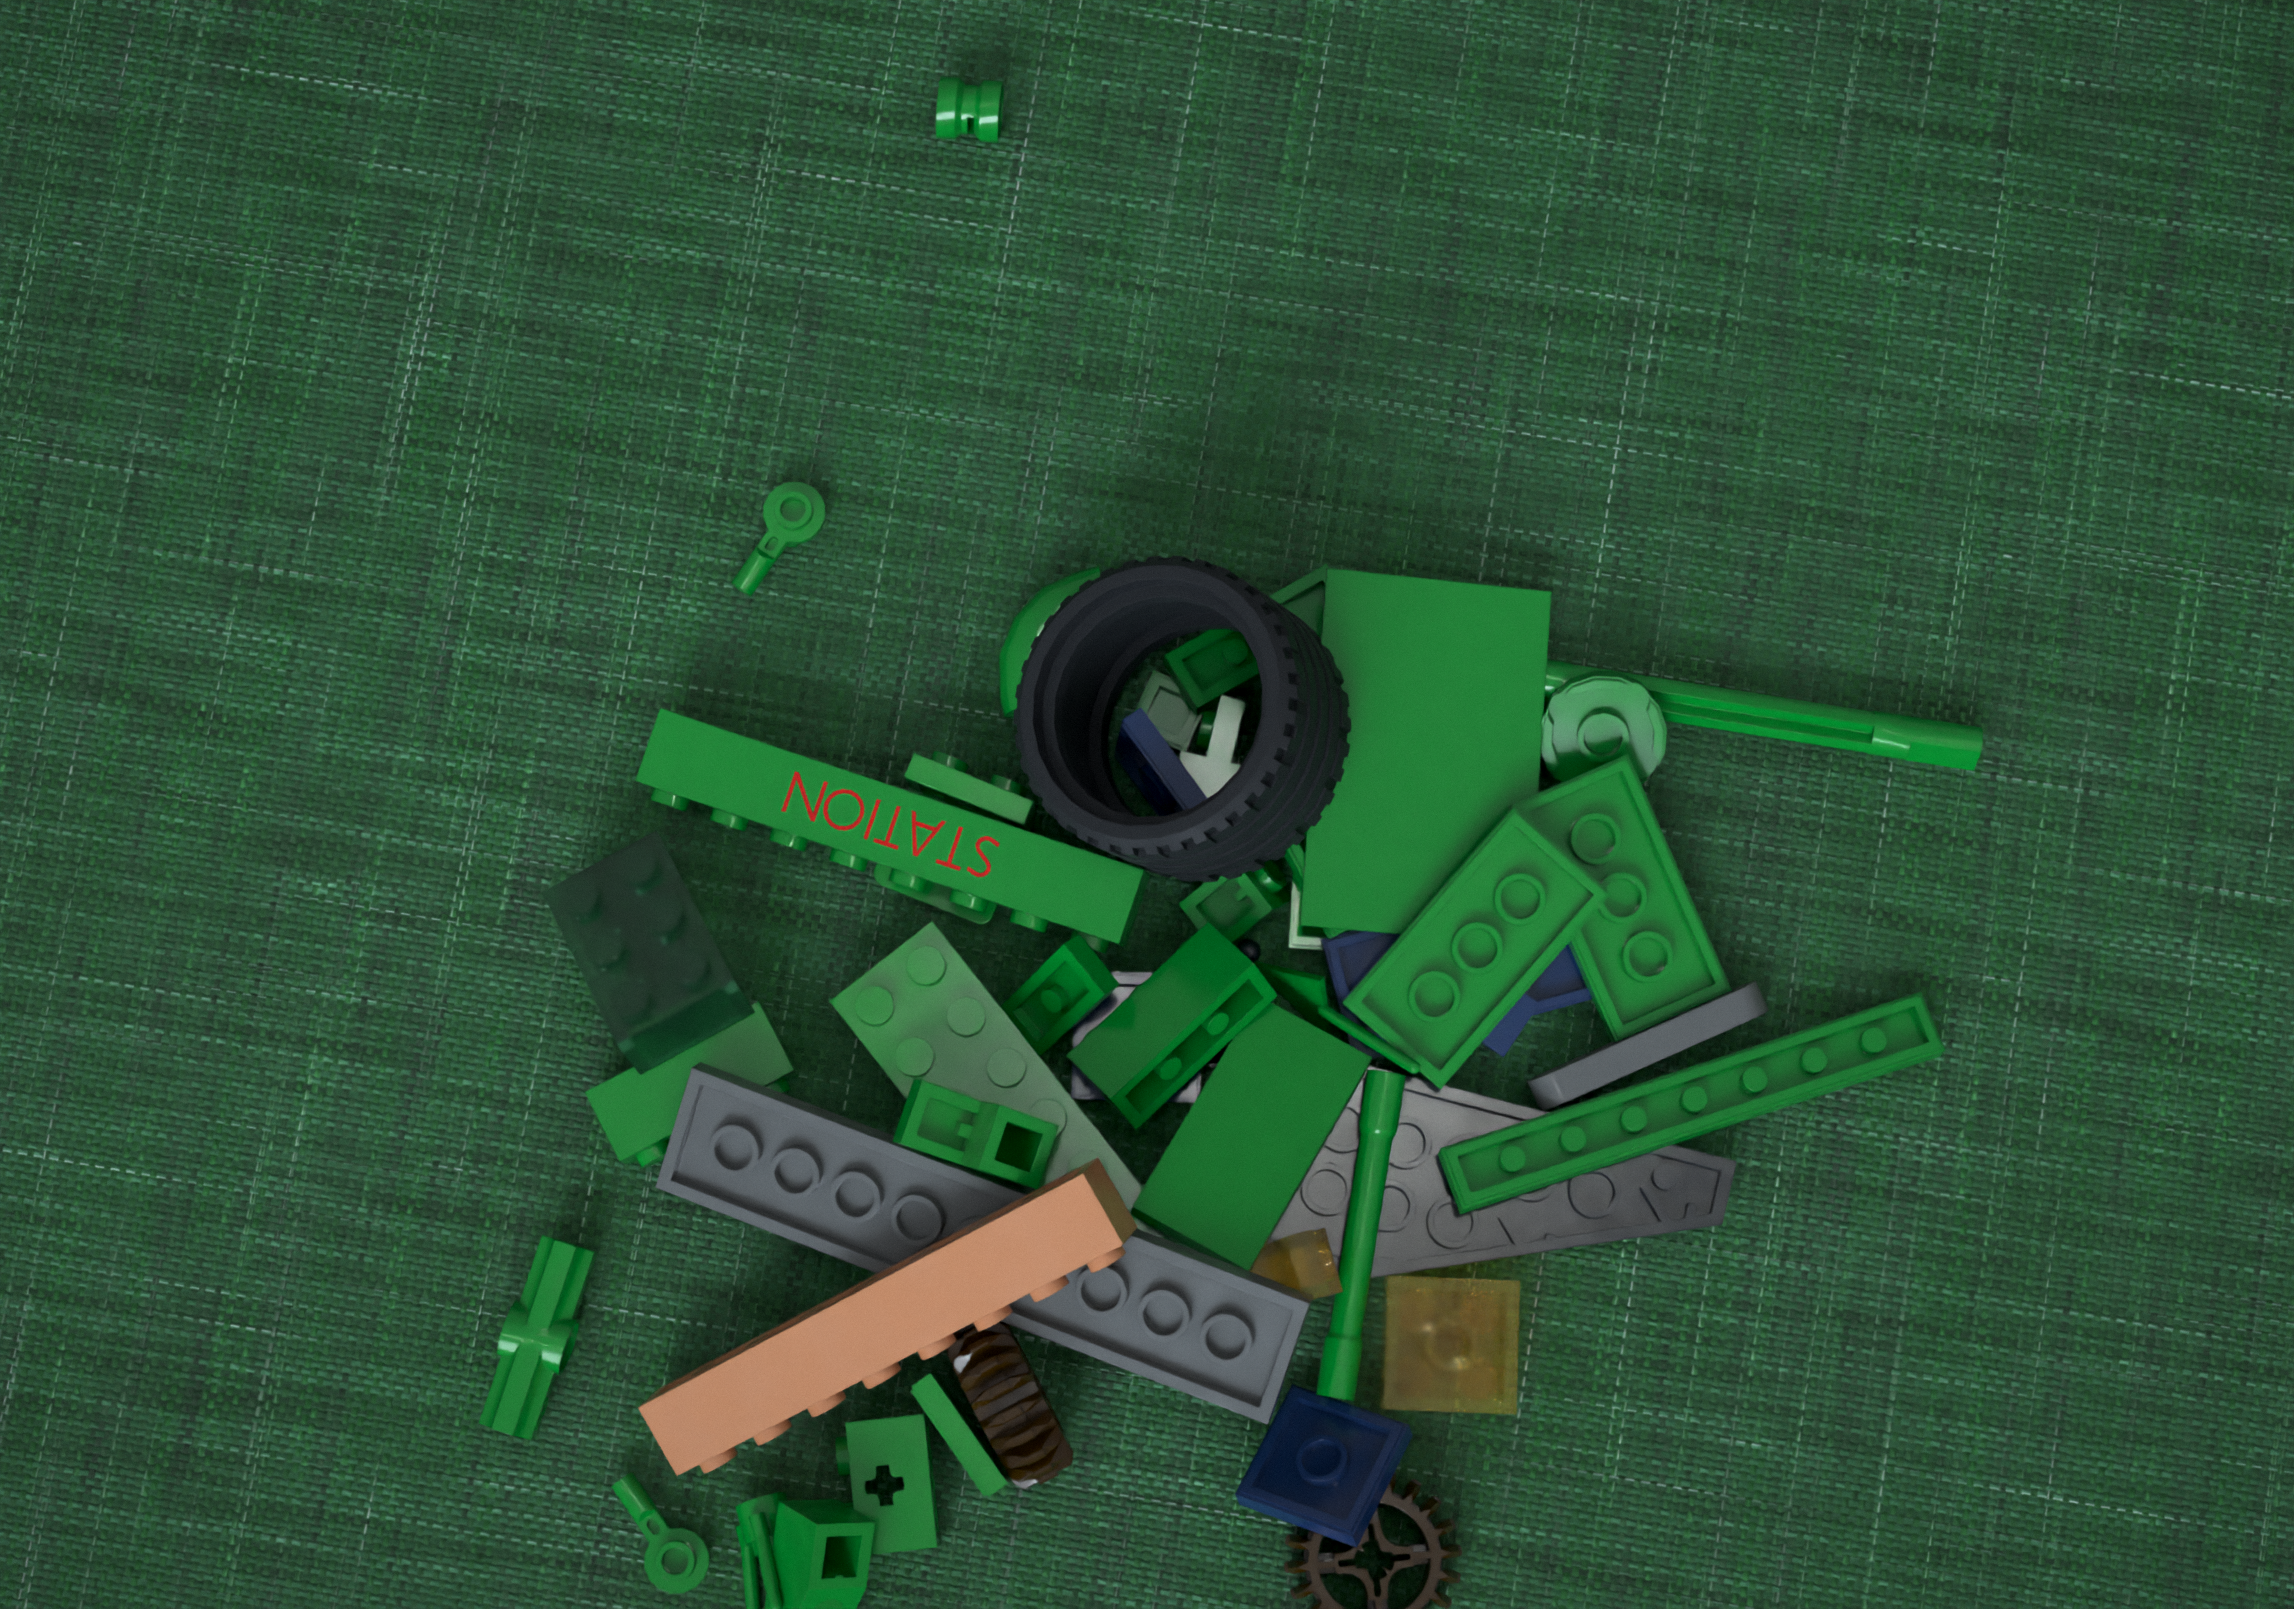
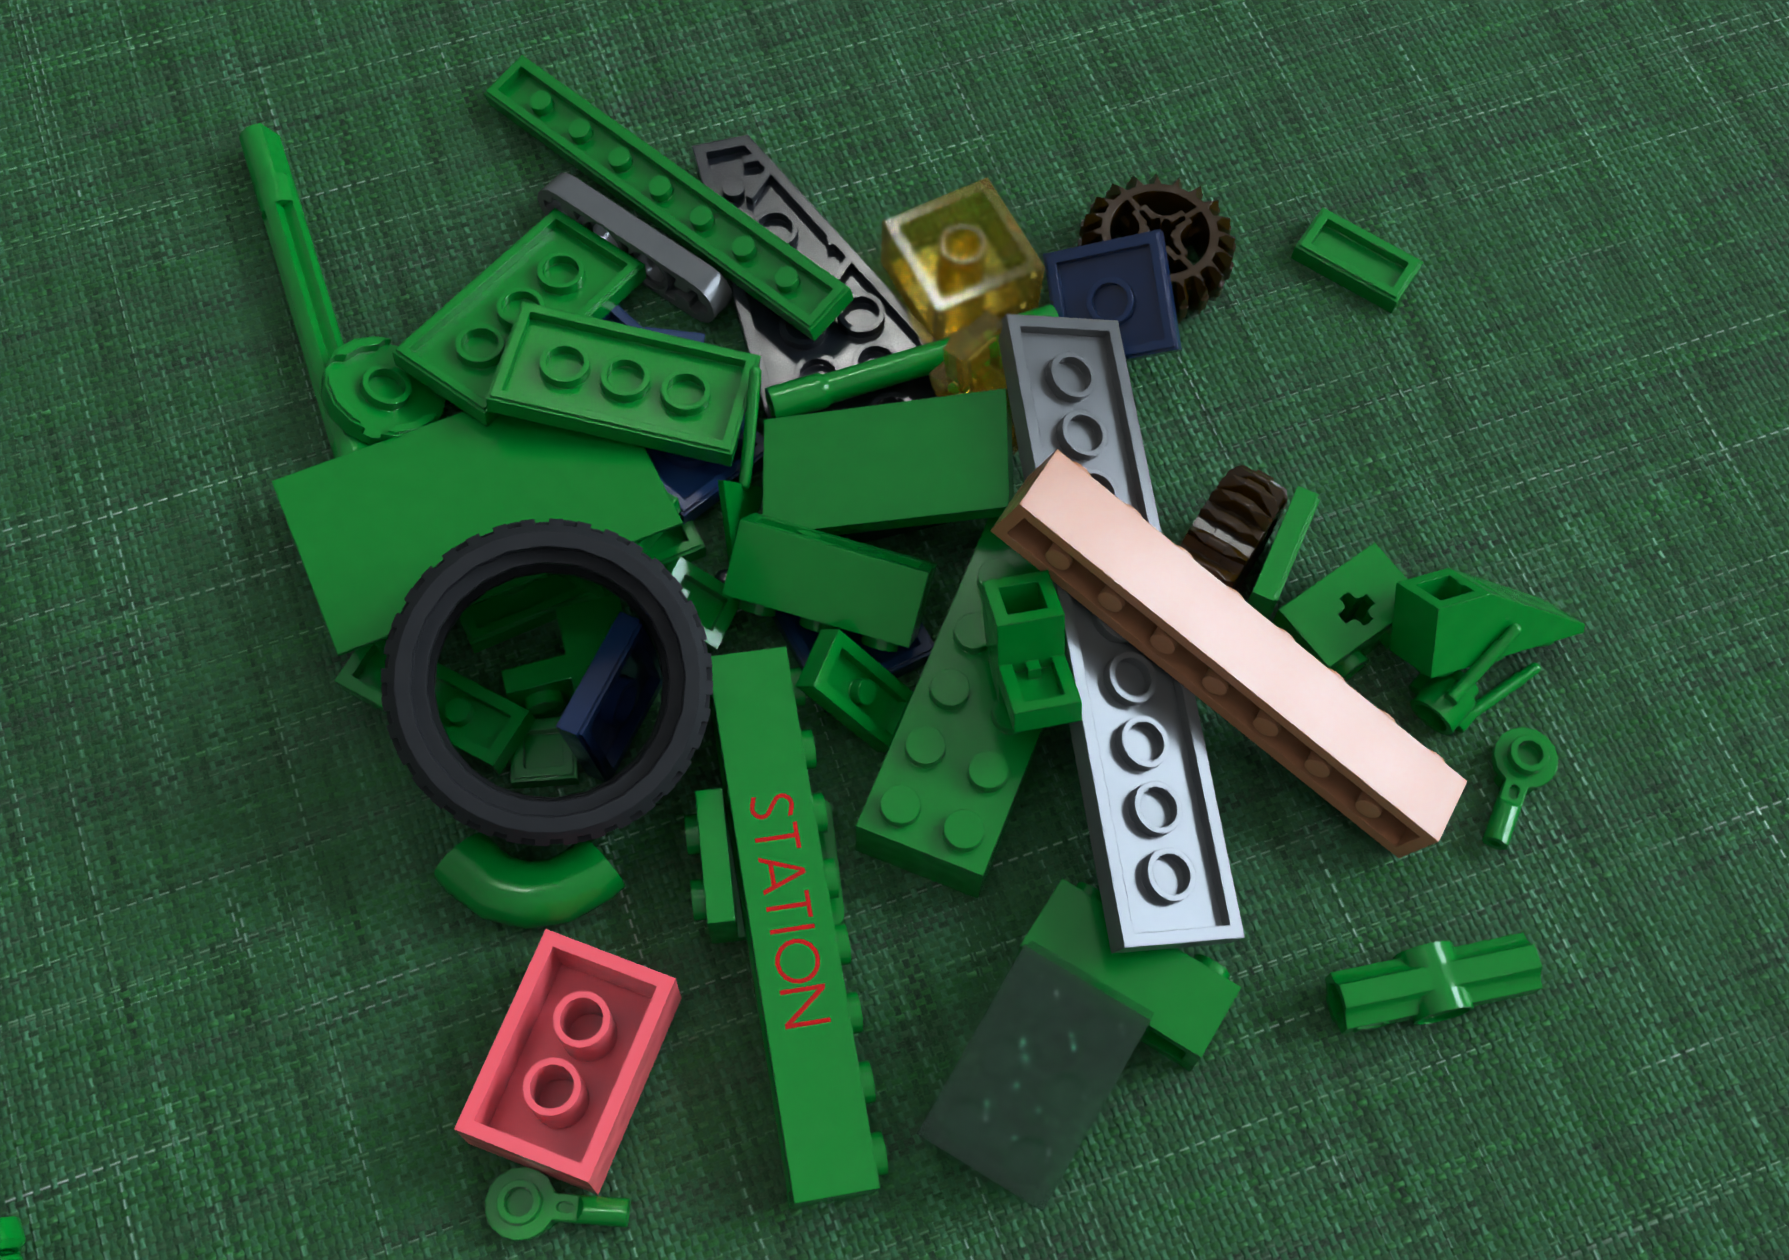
camera: 125 degrees left, 15 degrees down
(874, 598) = (570, 1061): none -> coral brick

